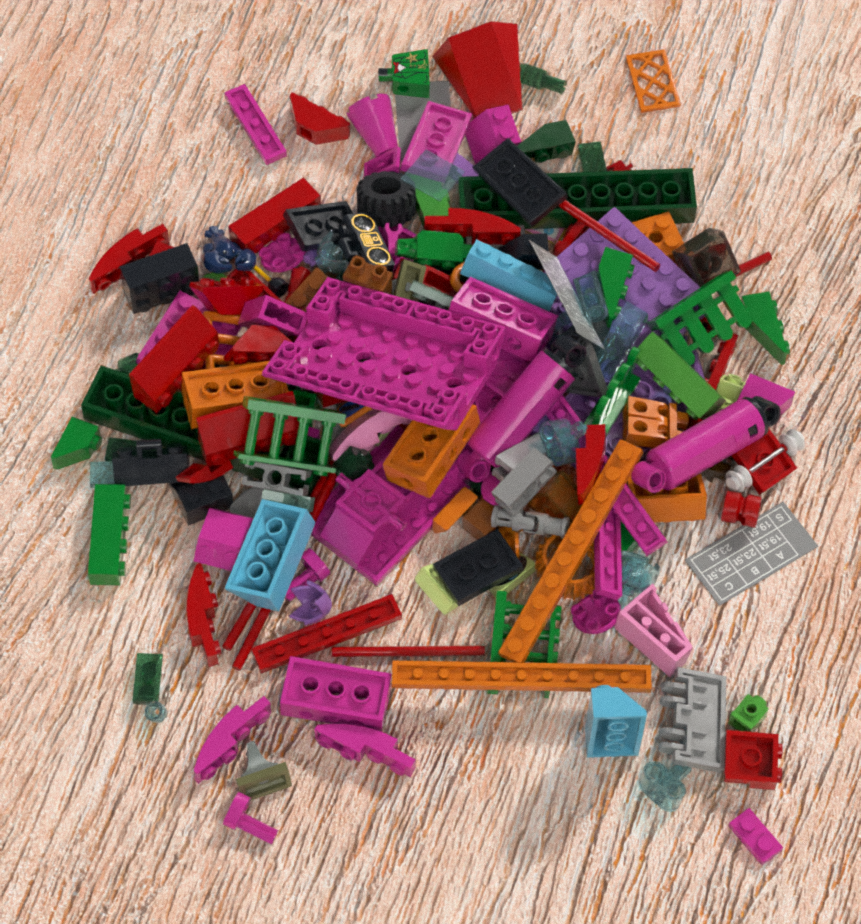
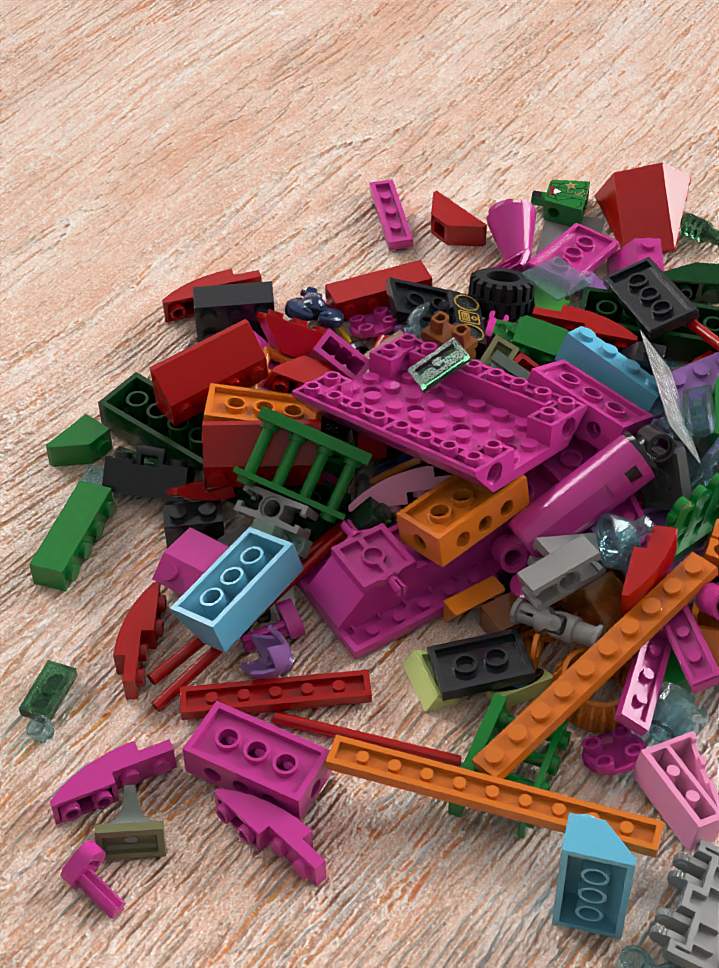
camera: 20 degrees right, 15 degrees down
(372, 312) = (439, 365): none -> clear green plate

